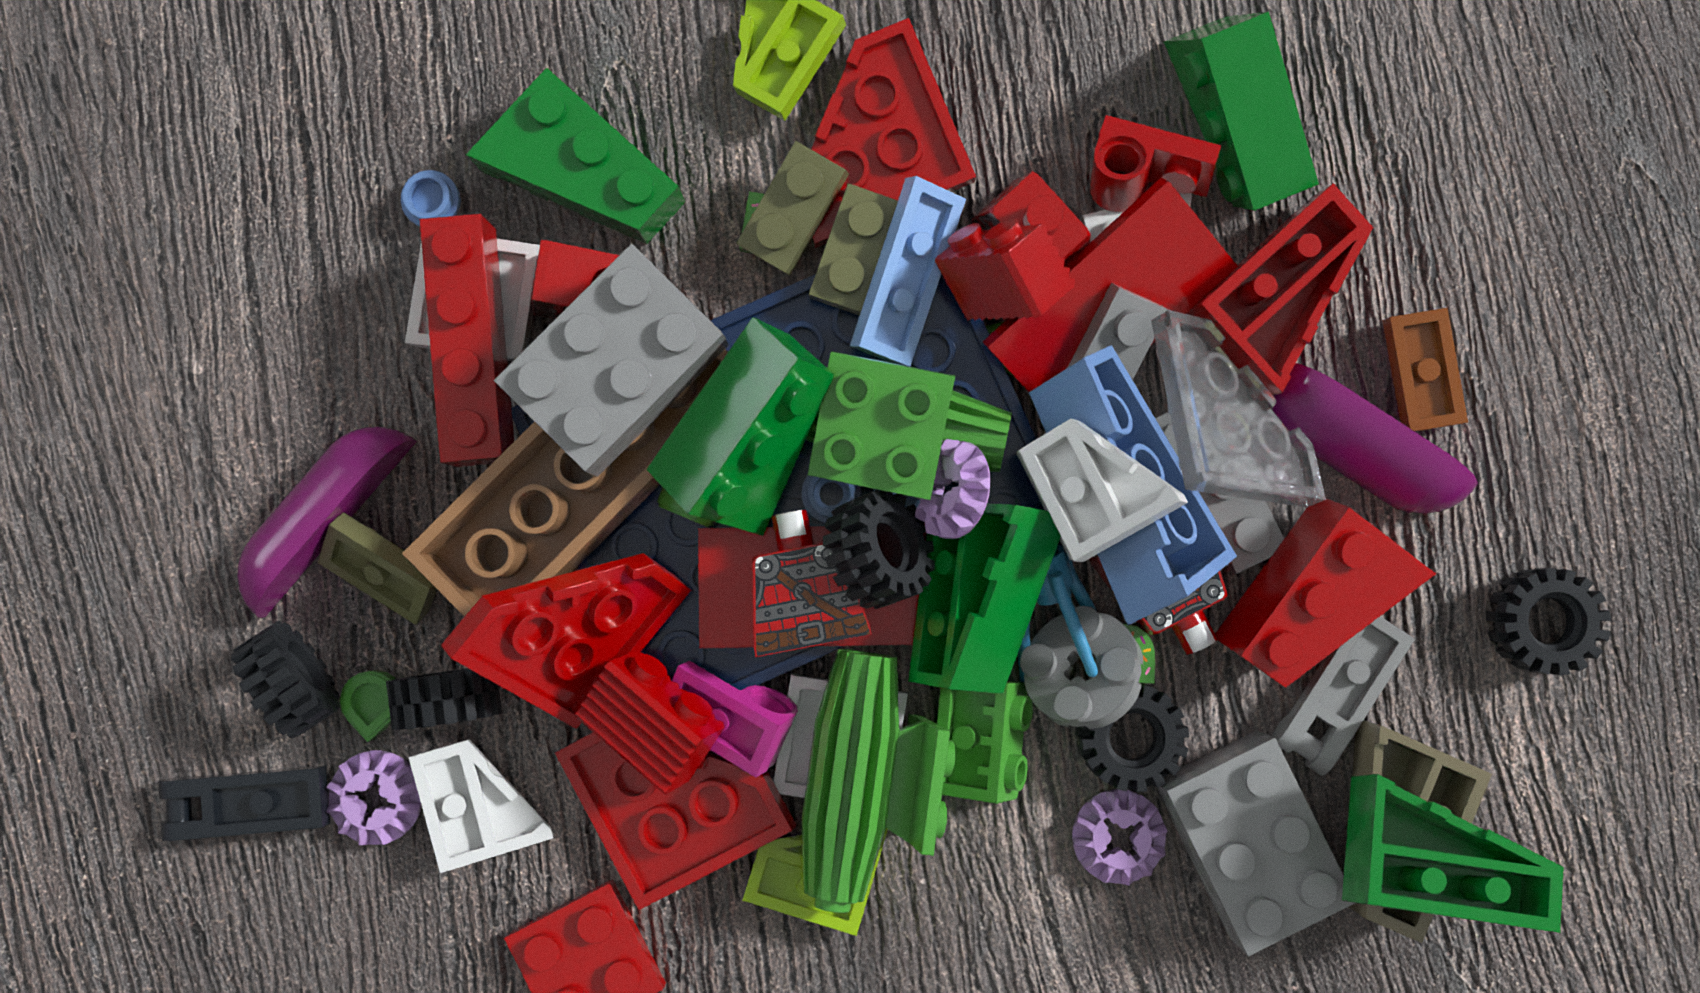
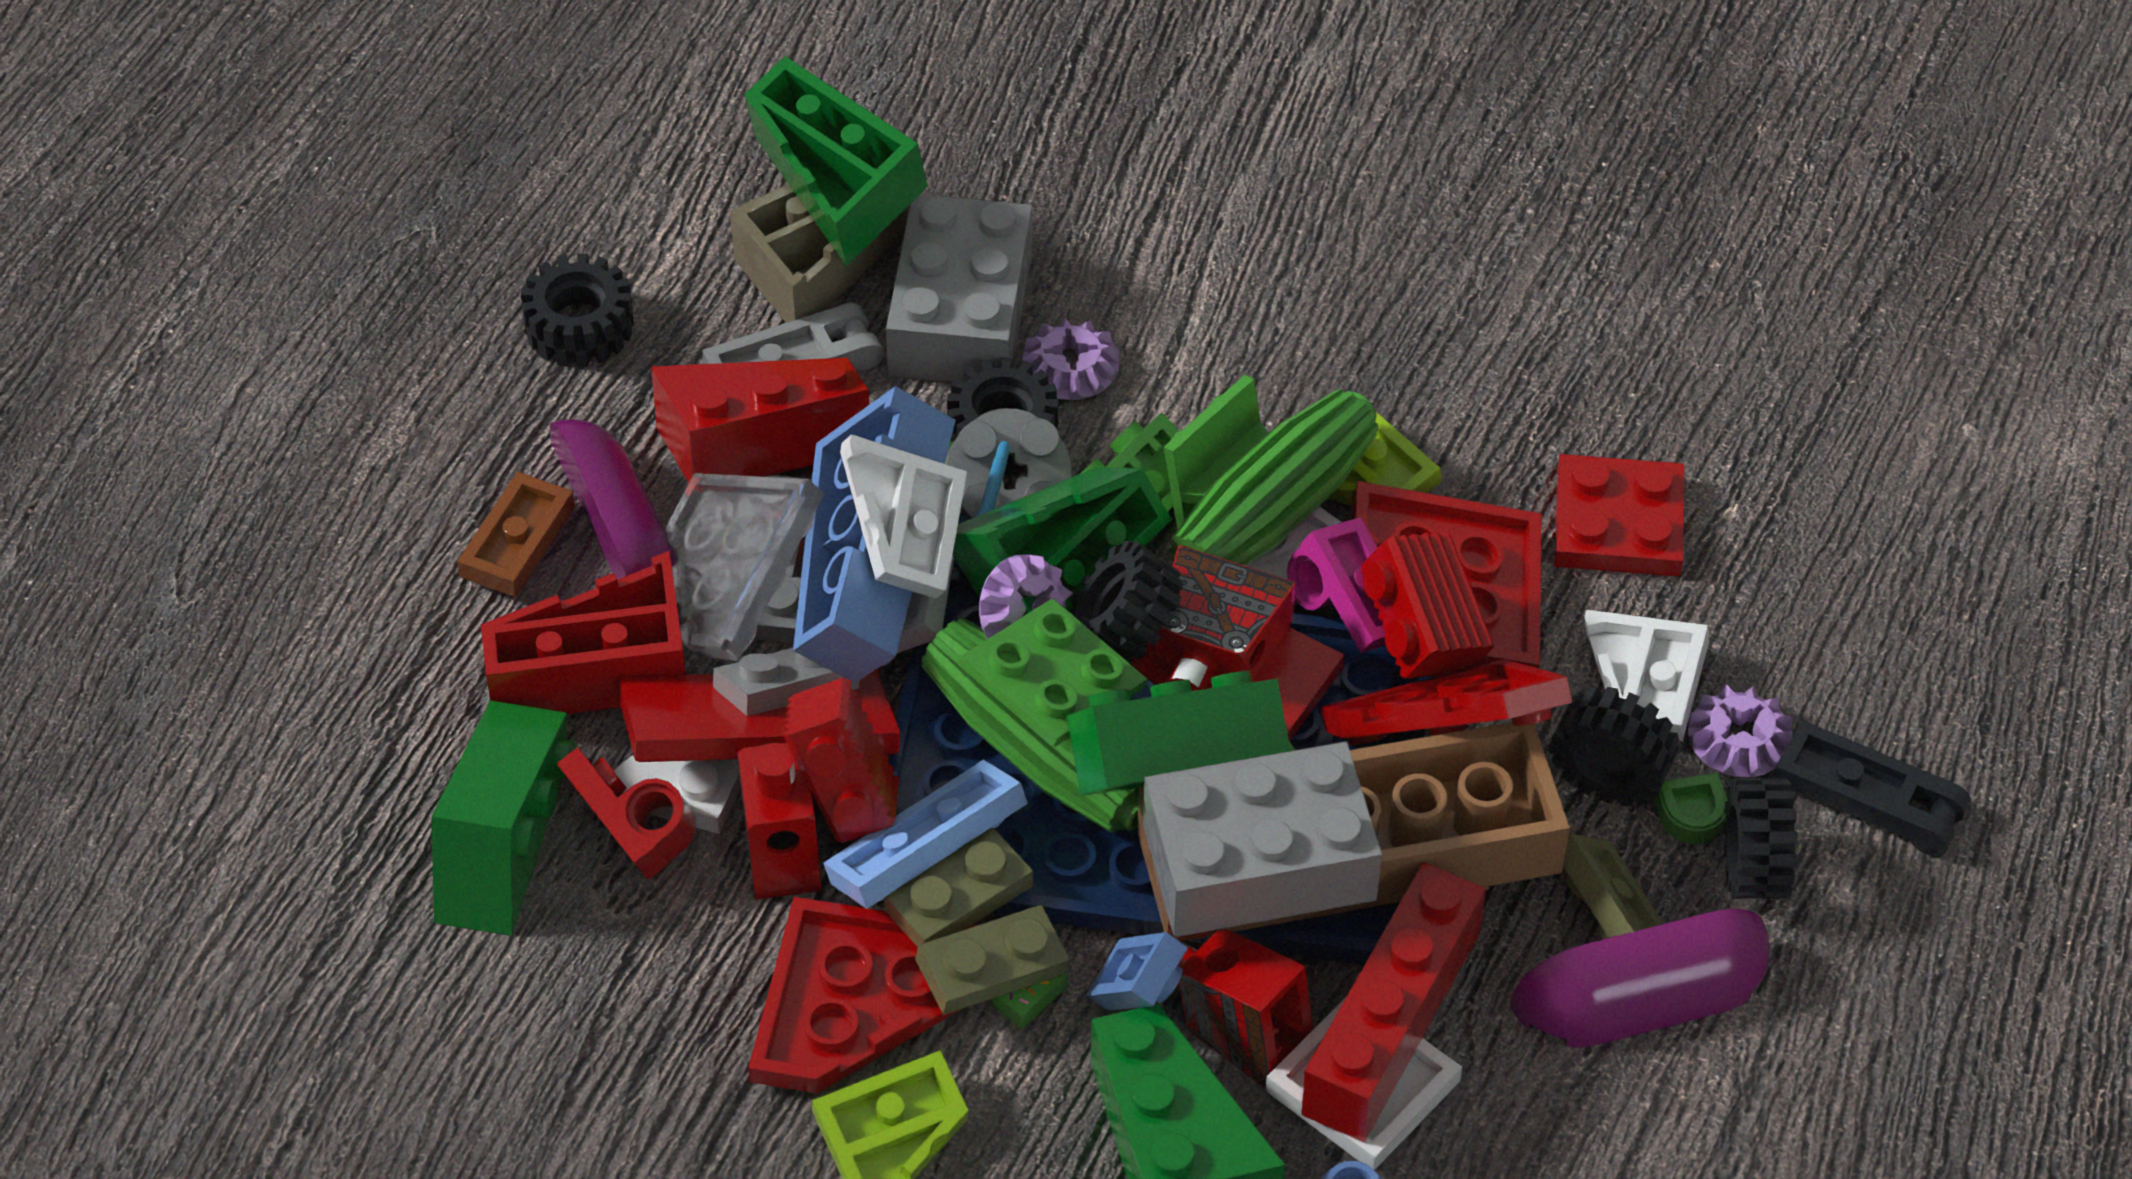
camera: 140 degrees left, 35 degrees down
(676, 250) = (1138, 972): none -> medium blue plate

